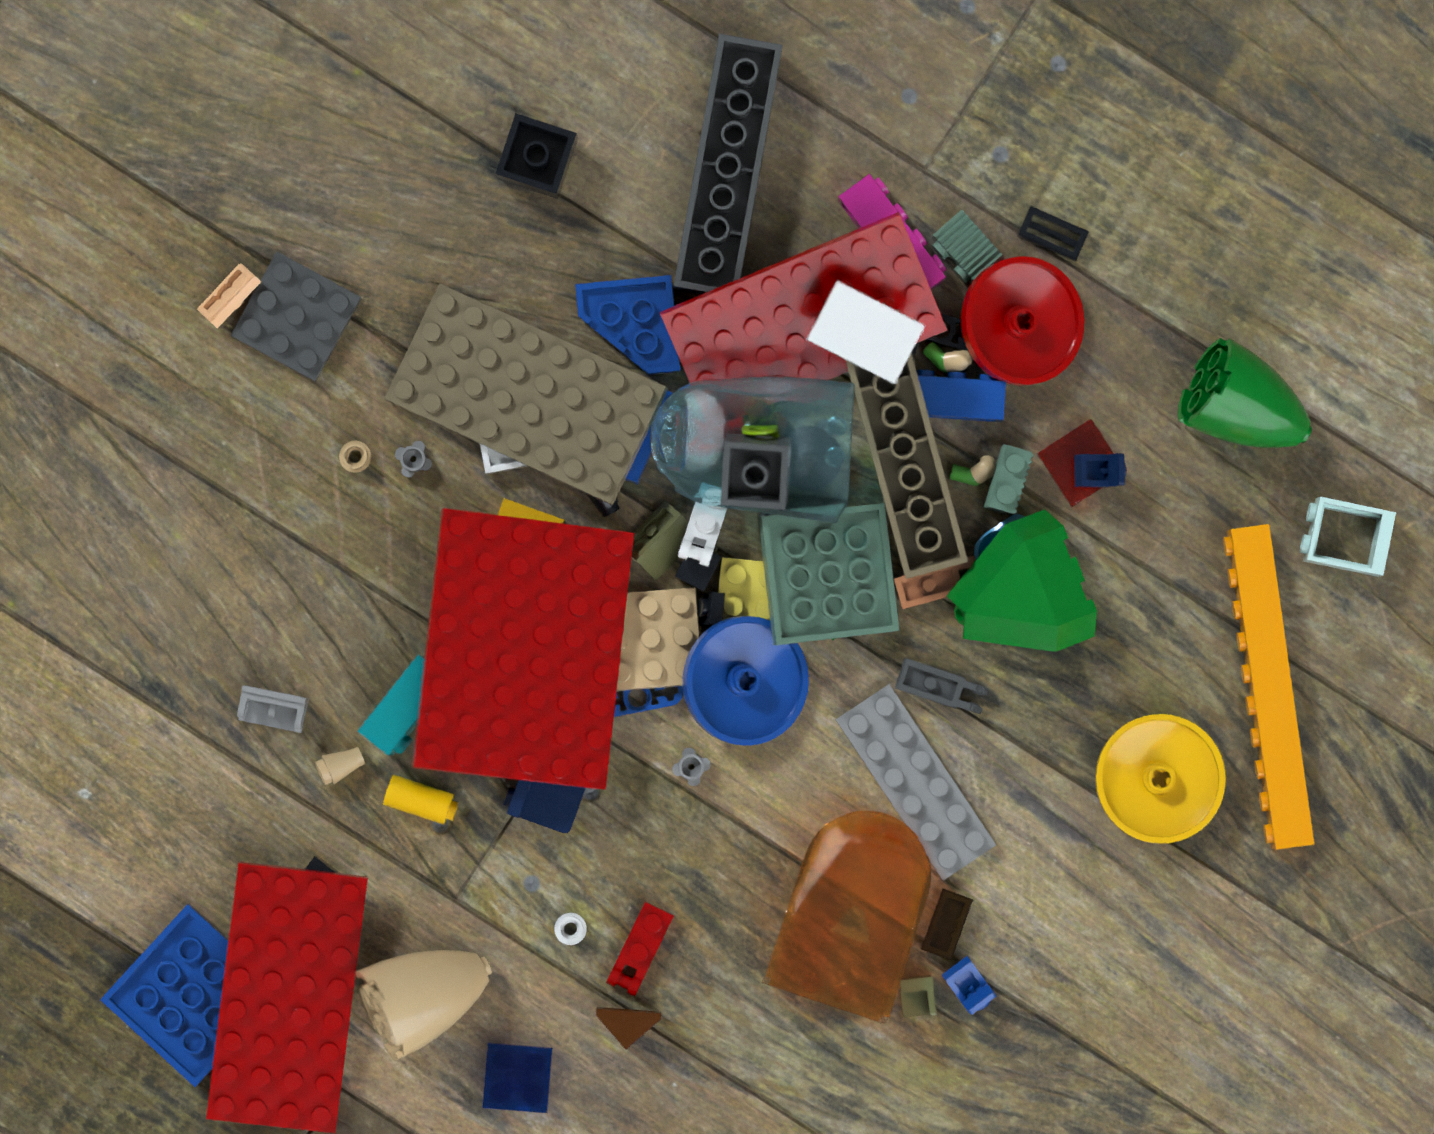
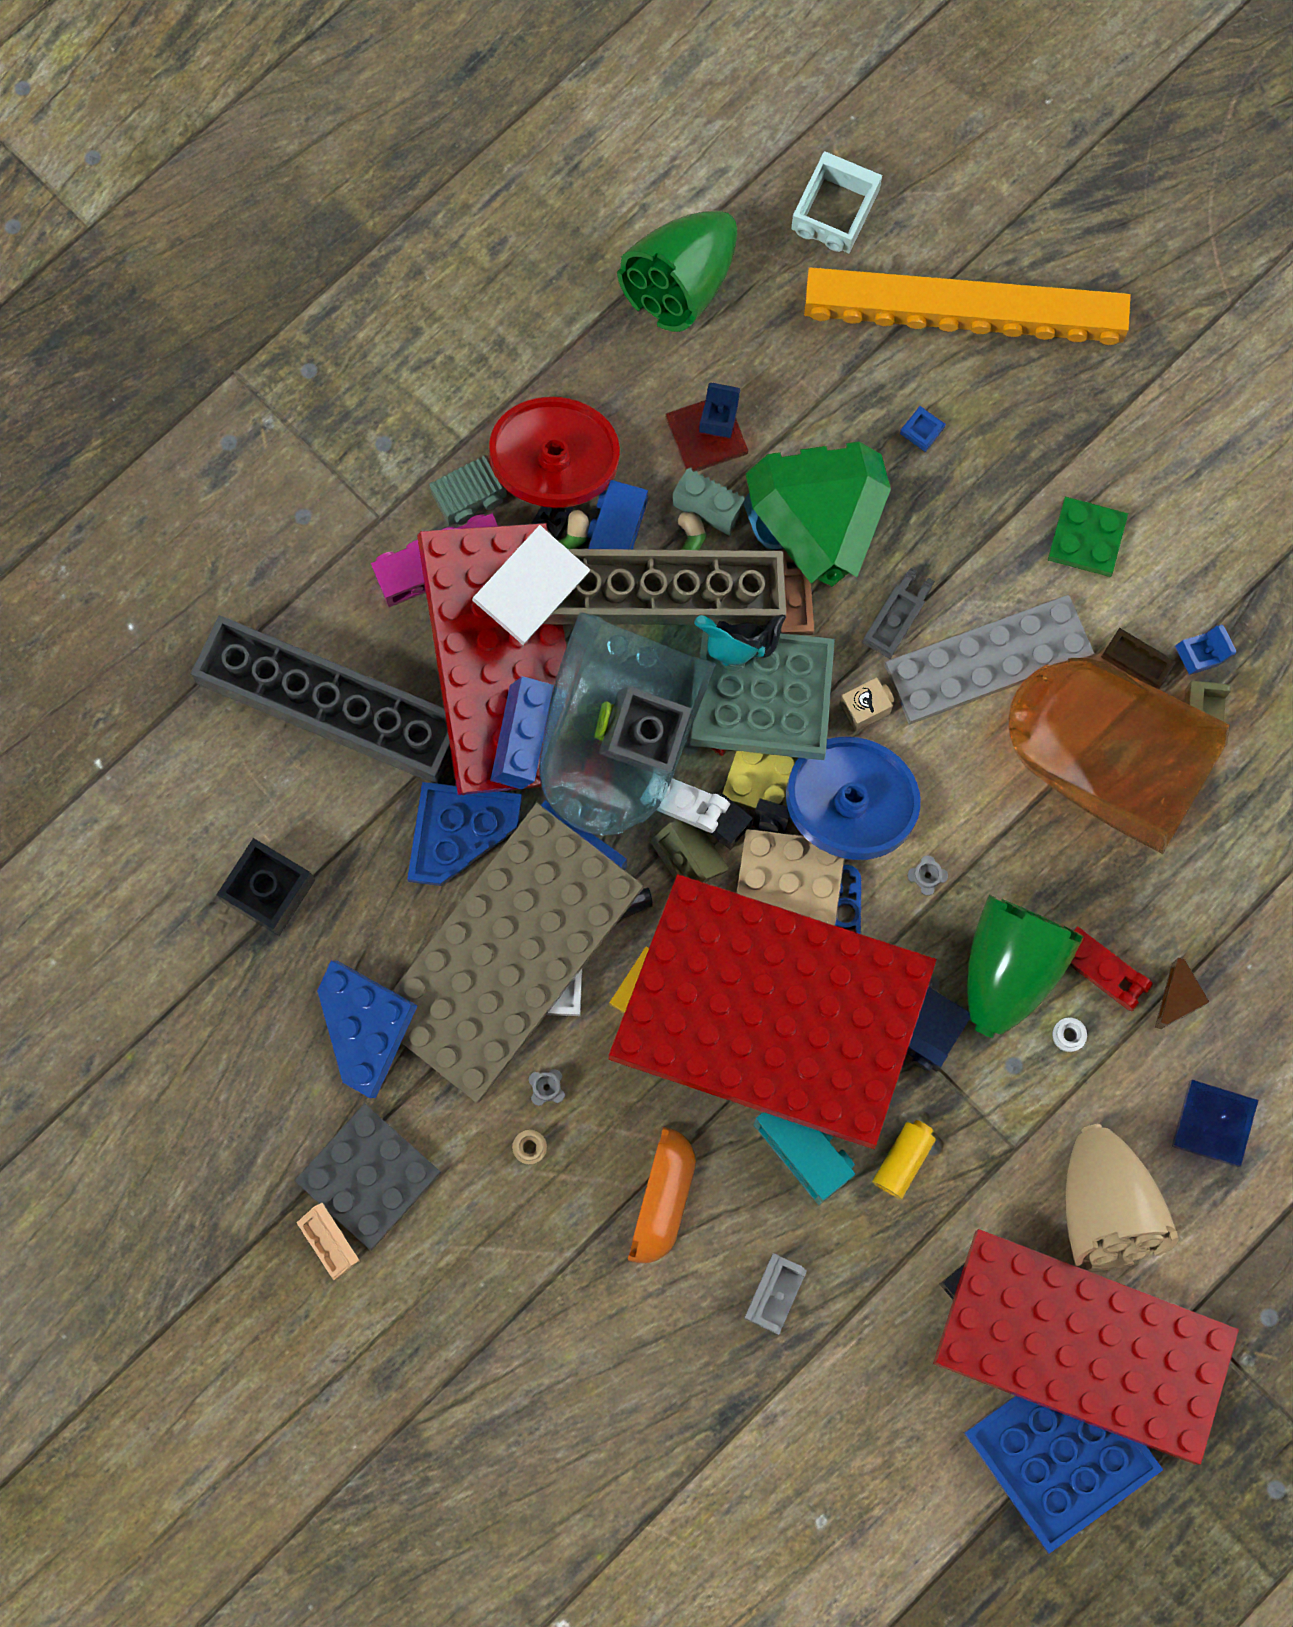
camera: 75 degrees left, 10 degrees down
(338, 589) = (664, 1198): none -> orange brick
(338, 765) = (850, 1238): tan cone -> none
(431, 278) = (363, 1025): none -> blue plate
(623, 863) = (1014, 964): none -> green cylinder
(728, 357) = (522, 732): none -> blue brick
(843, 675) = (867, 703): none -> tan brick
(869, 541) = (741, 641): none -> hair
(1053, 234) = (468, 436): black tile -> none
(1060, 852) = (1087, 536): none -> green plate
(1134, 671) = (922, 428): none -> blue tile
(1160, 778) = (1036, 423): yellow dish -> none

